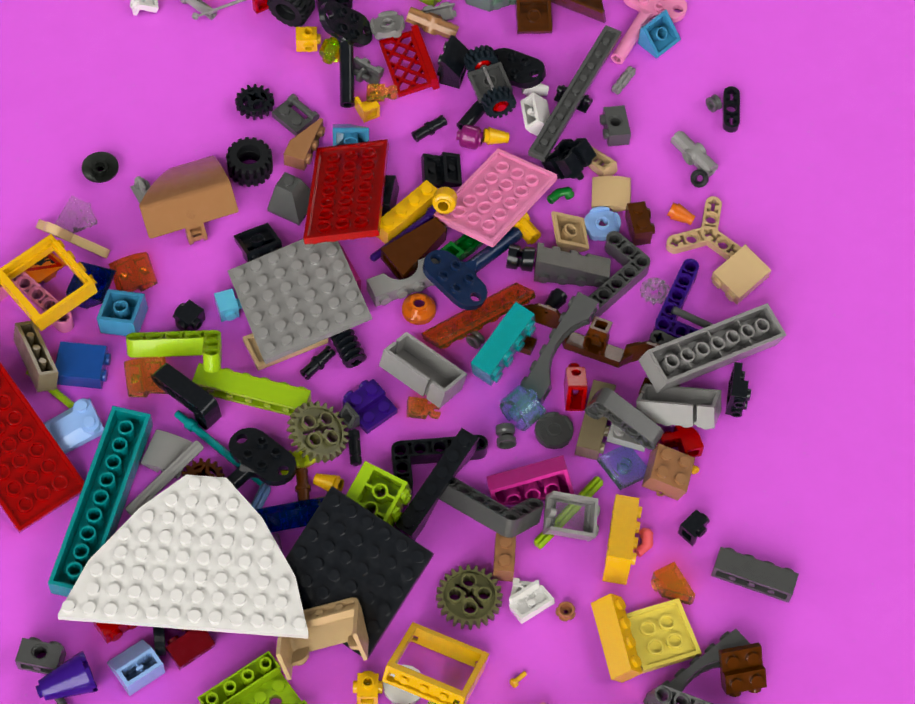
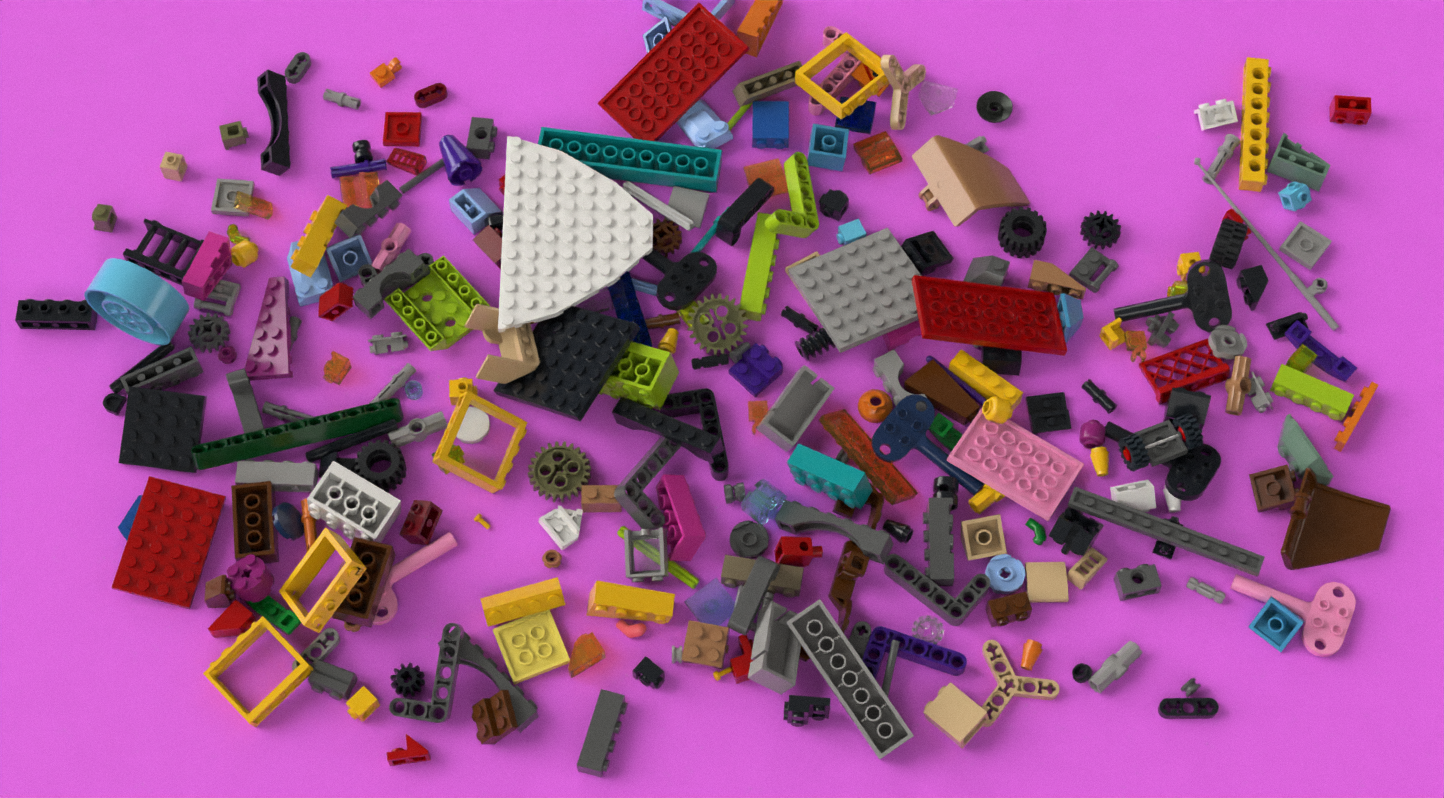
camera: 90 degrees right, 5 degrees up
(674, 501) = (676, 654): none -> light grey bush

